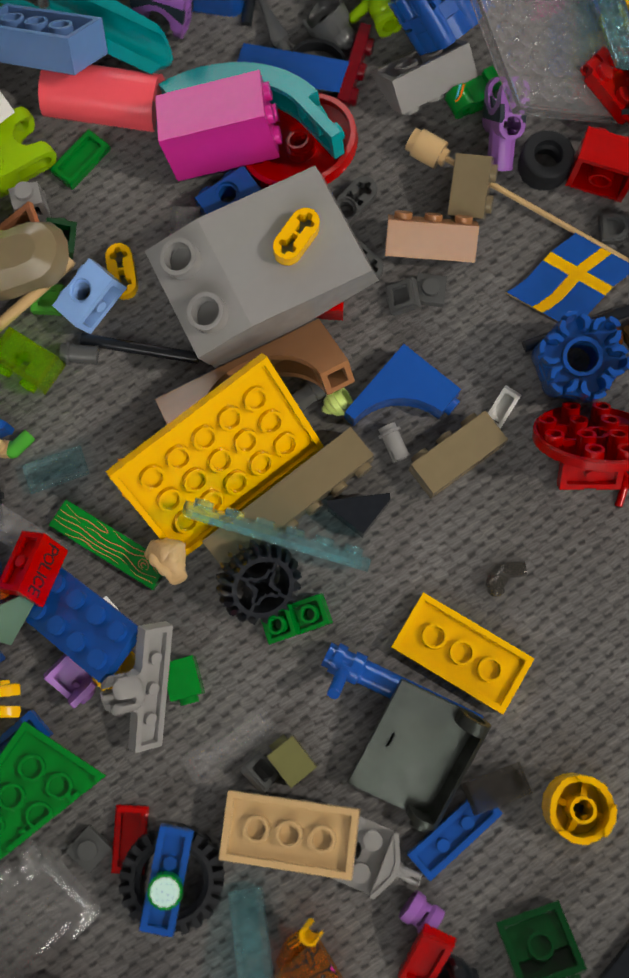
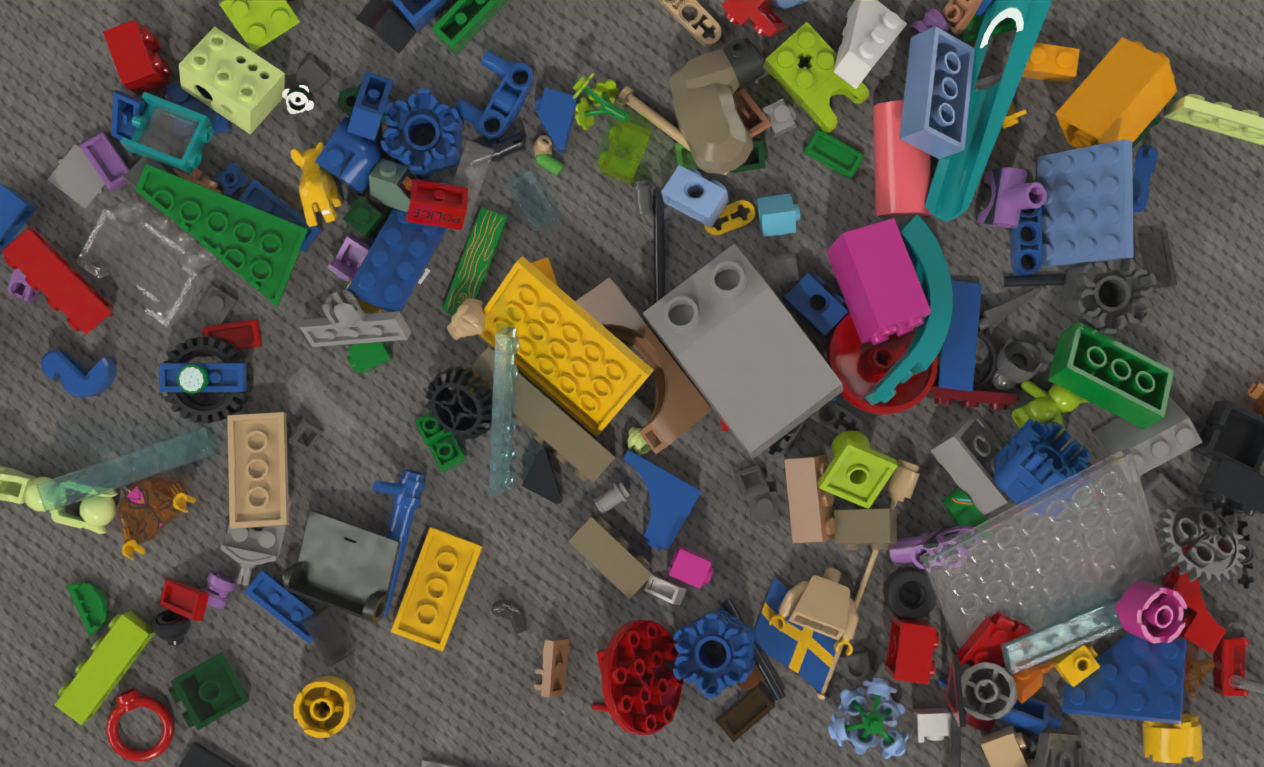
camera: 75 degrees right, 10 degrees up
(29, 655) = (364, 218): none -> dark green brick
(128, 219) = (777, 215): none -> medium azure brick
(291, 759) = (320, 459): olive brick -> none
(301, 240) = (769, 373): yellow beam -> none
(408, 179) = (856, 469): none -> lime plant
(482, 368) = (690, 567): none -> dark pink brick
(547, 246) = (821, 607): none -> tan torso
(576, 539) = (554, 667): none -> medium nougat plate

